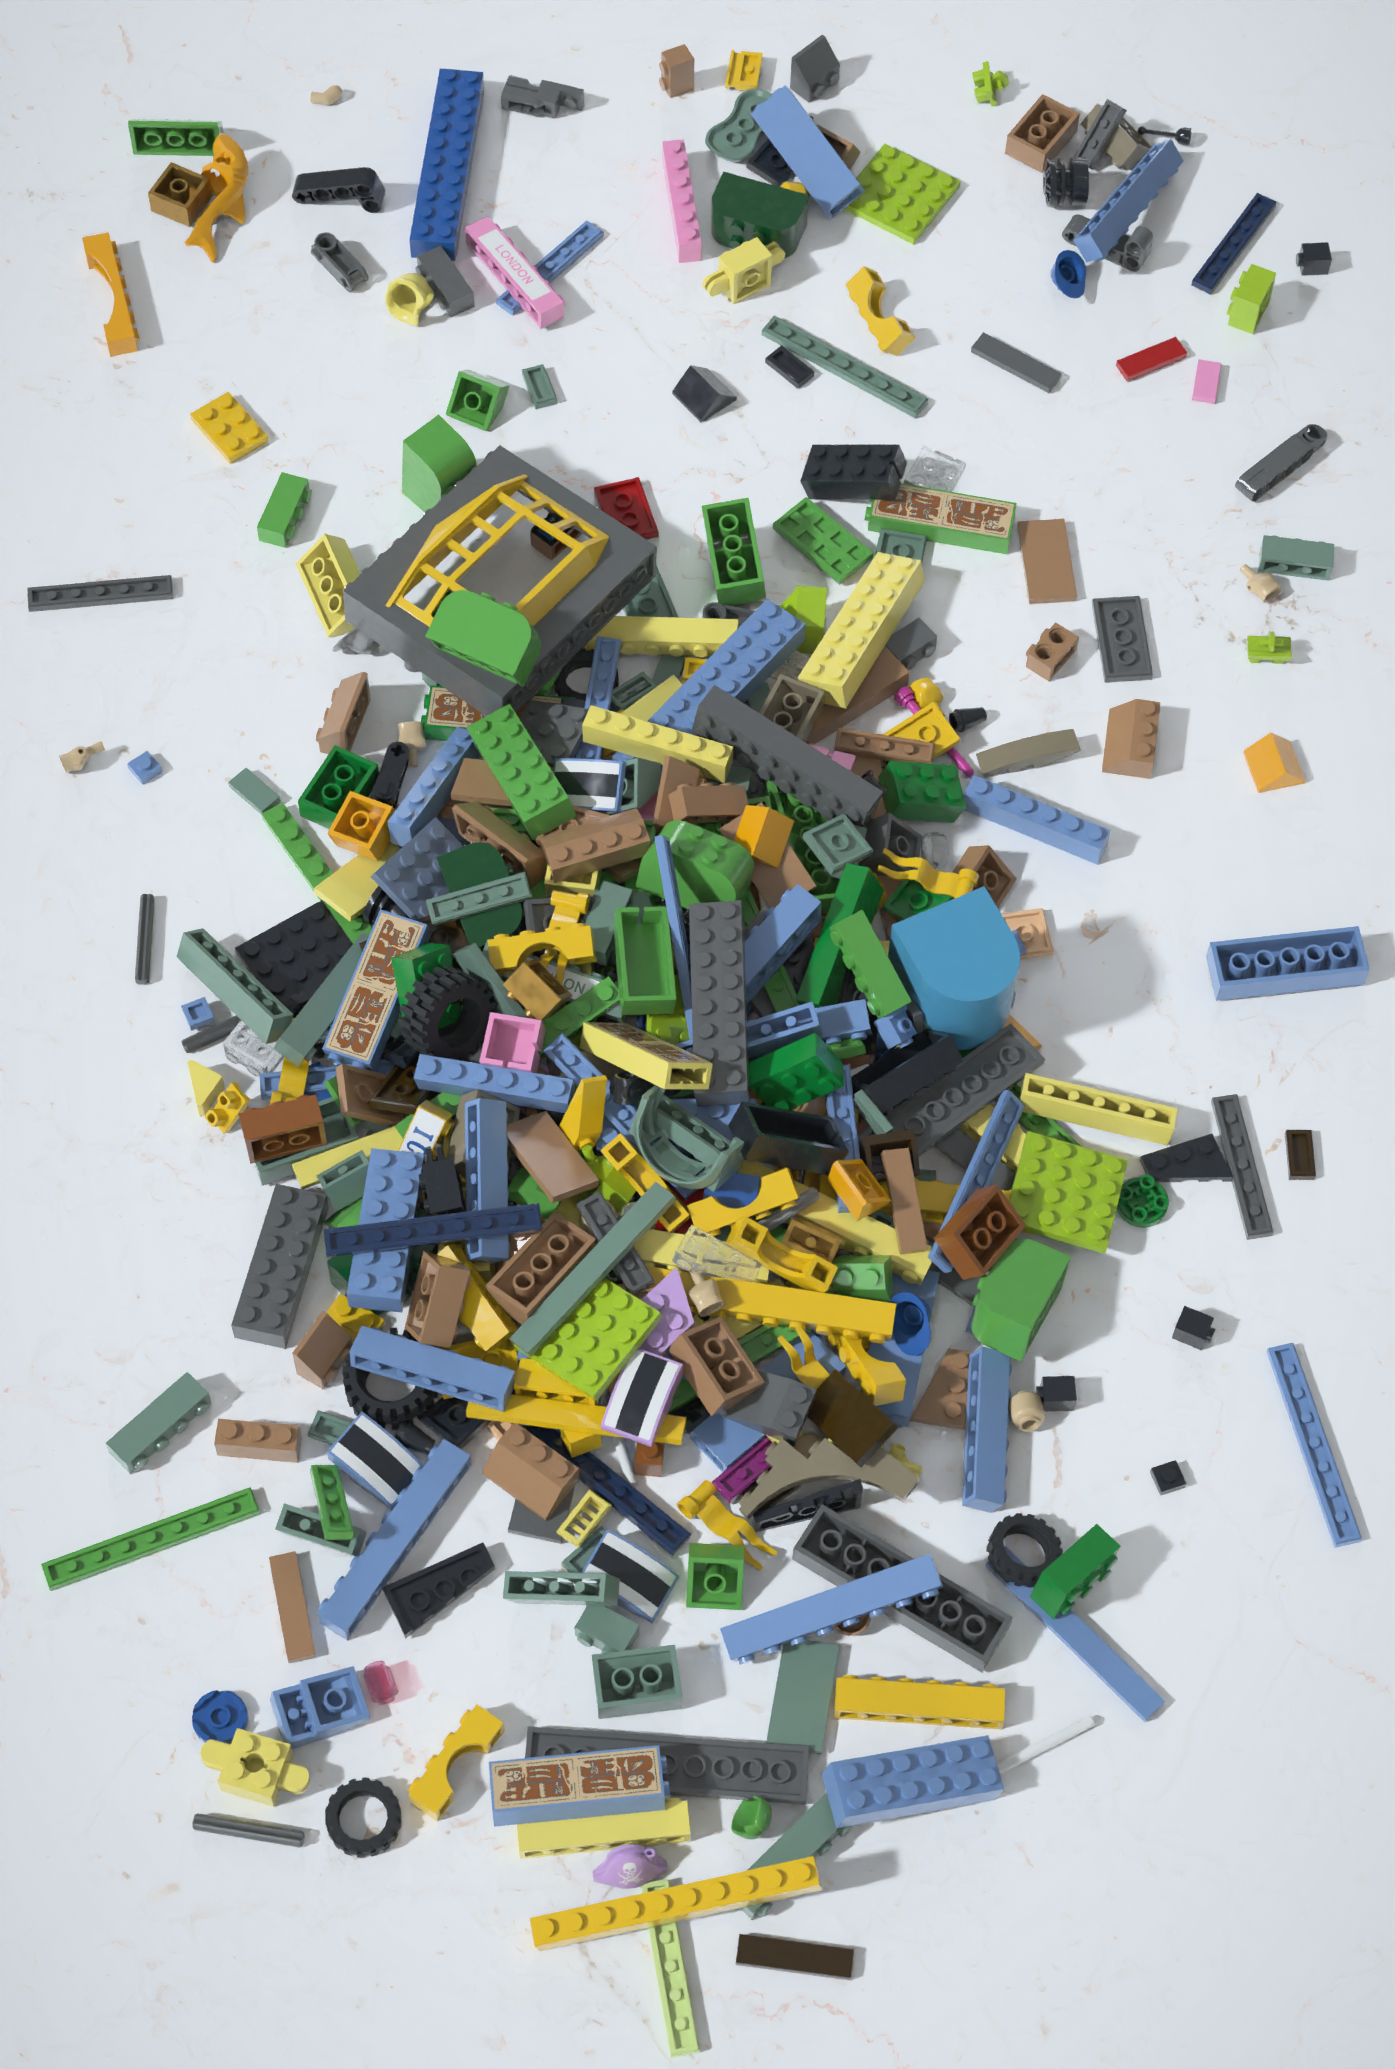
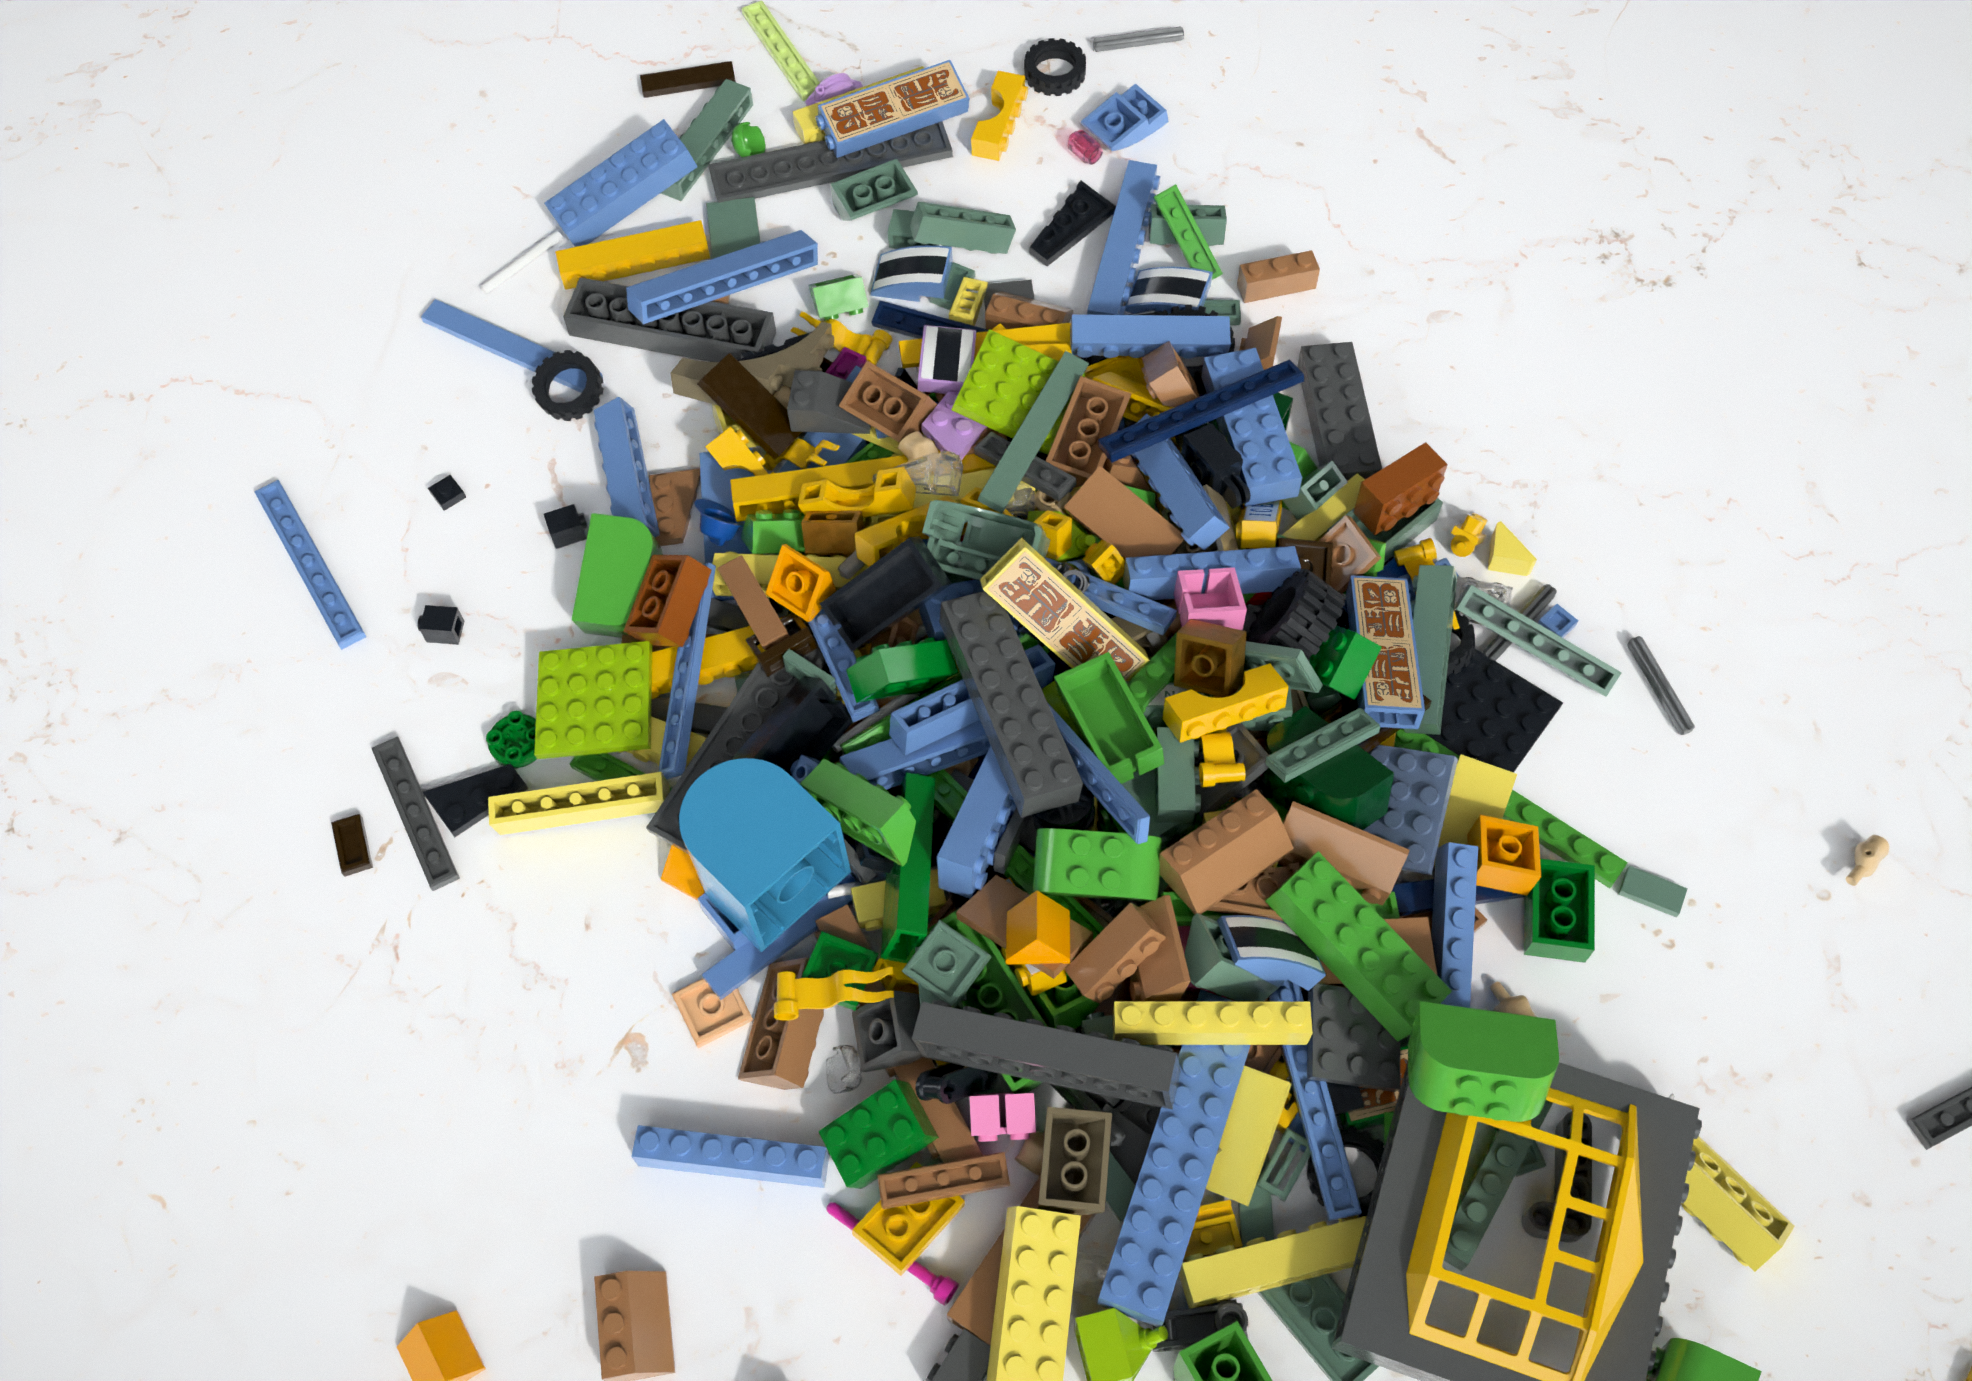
camera: 165 degrees right, 0 degrees up
(144, 767) = (1789, 880): medium blue plate -> none
(150, 1539) = (1325, 195): bright green tile -> none
(159, 1423) = (1370, 267): sand green brick -> none
(219, 1716) = (1200, 98): blue tile -> none
(255, 1767) = (1154, 66): light yellow brick -> none
(284, 510) = (1858, 1297): bright green brick -> none
(292, 1607) = (1177, 172): medium nougat tile -> none
(345, 714) = (1607, 1009): medium nougat slope -> none
(391, 774) = (1510, 949): black piece -> none
(675, 1903) = (784, 61): yellow brick -> none
(898, 1453) = (699, 430): light yellow arm -> none
(926, 692) = (914, 1300): yellow piece -> none
(966, 718) = (855, 1284): black cone -> none
(1026, 1411) = (591, 499): tan head -> none
(1028, 751) = (761, 1255): dark tan slope -> none
(1076, 1572) = (509, 370): green brick -> none
(1287, 963) = (386, 1057): medium blue brick -> none

